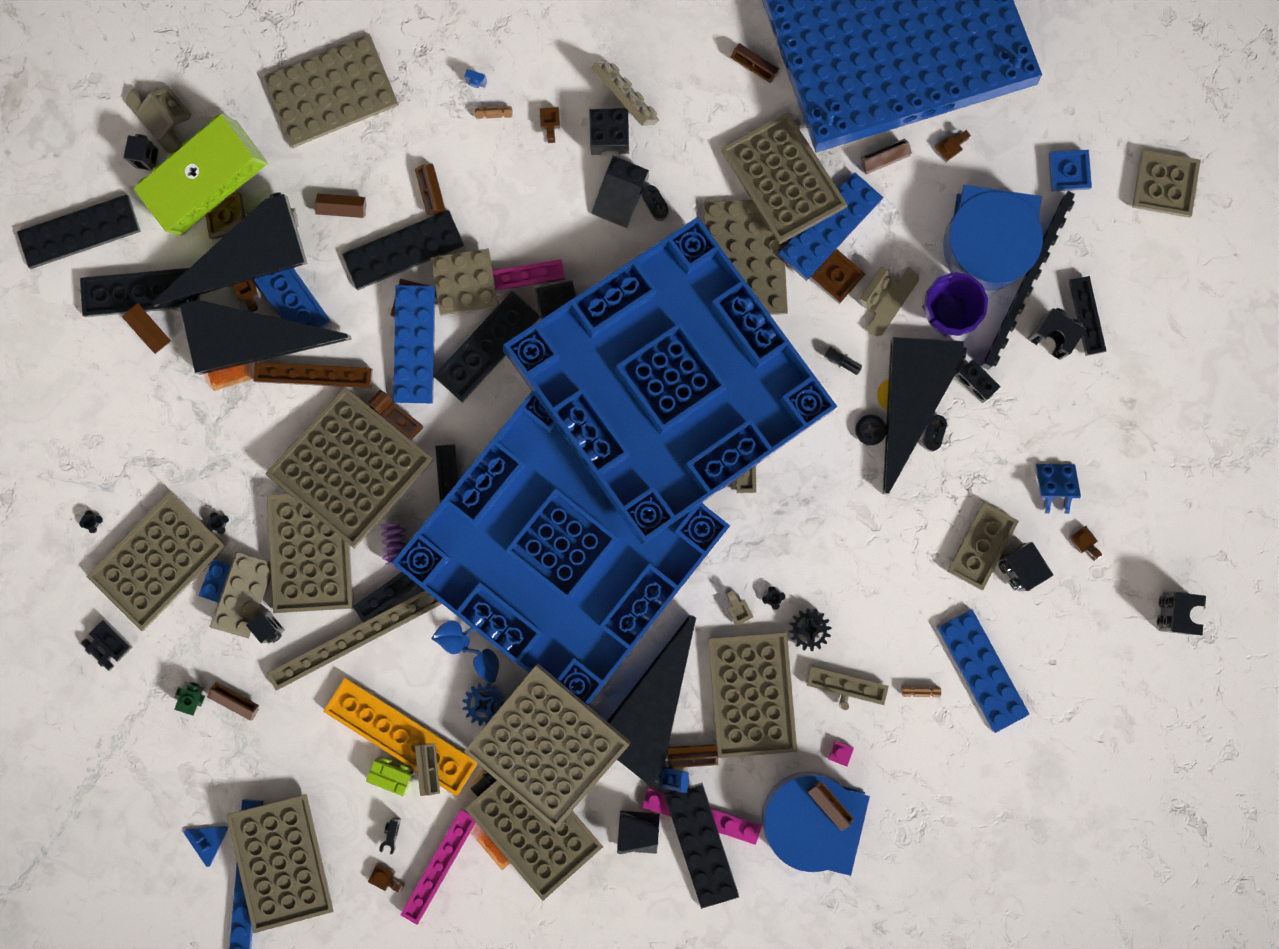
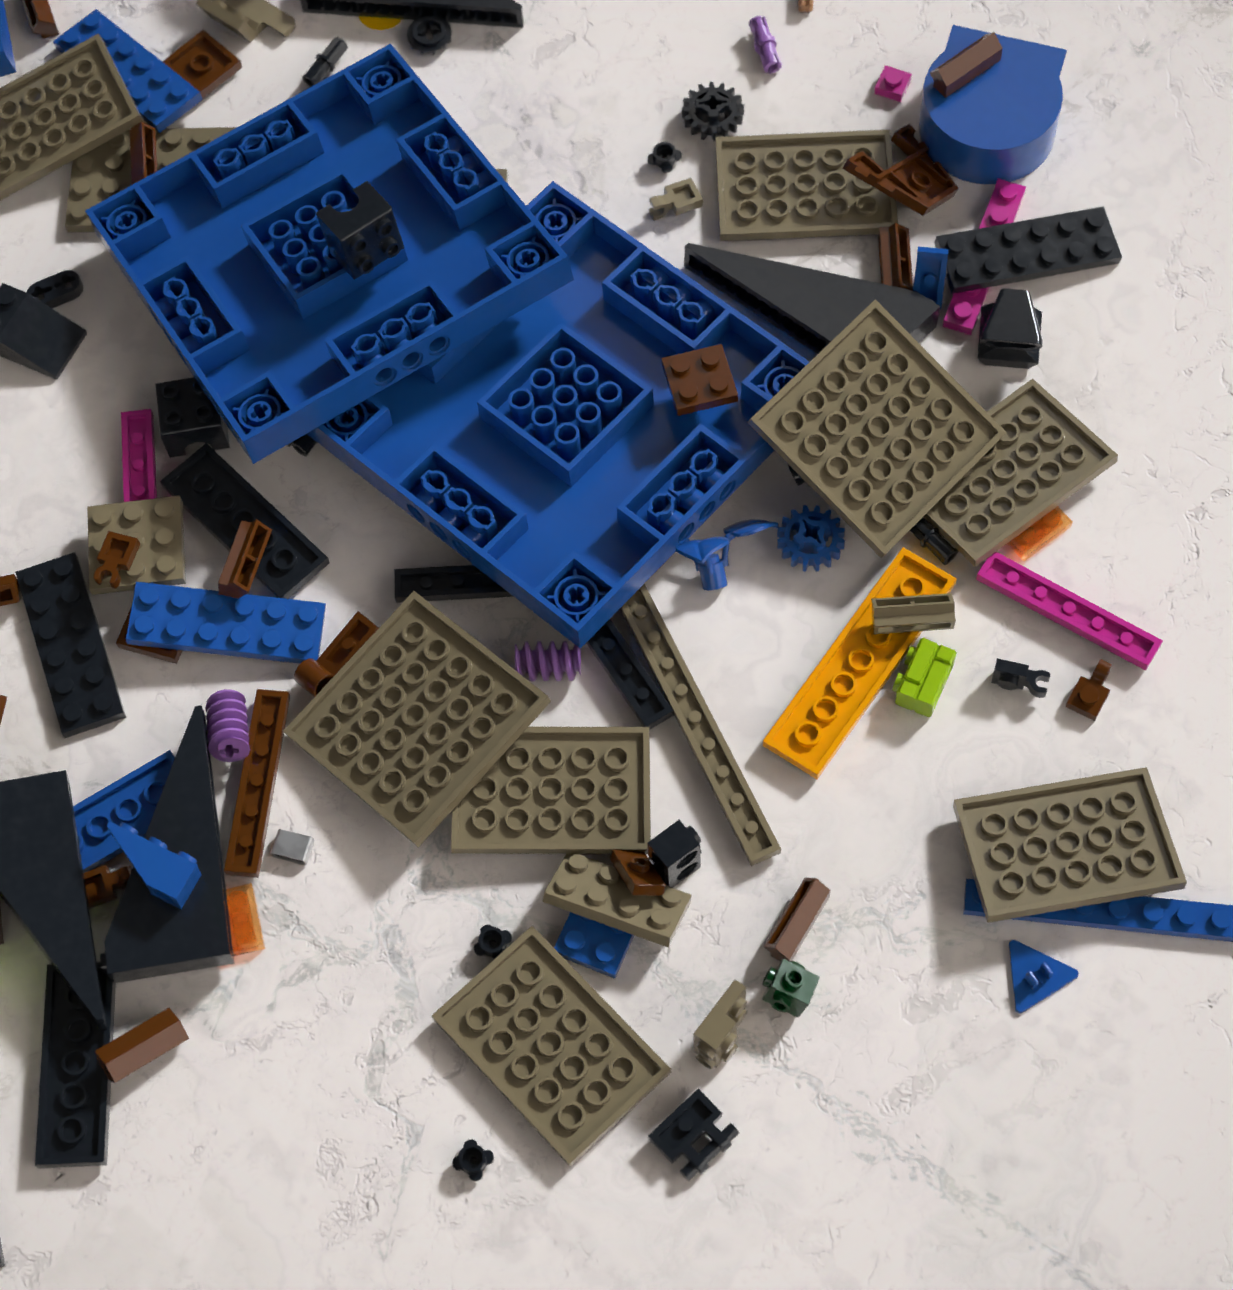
camera: 85 degrees left, 20 degrees down
(156, 656) = (718, 1032): none -> dark tan plate
(236, 327) = (162, 871): none -> blue slope
(252, 606) = (638, 873): none -> reddish brown plate
(274, 400) = (292, 847): none -> flat silver piece
(343, 352) = (227, 726): none -> medium lavender piece
(447, 273) = (115, 554): none -> reddish brown plate
(451, 351) = (244, 559): none -> reddish brown piece
(572, 631) = (699, 379): none -> reddish brown plate
(653, 409) = (362, 235): none -> black piece
(749, 245) = (141, 157): none -> reddish brown piece
(751, 770) = (912, 181): none -> reddish brown wing
(847, 686) = (797, 70): dark tan plate -> none
(868, 663) = (765, 44): none -> medium lavender pin

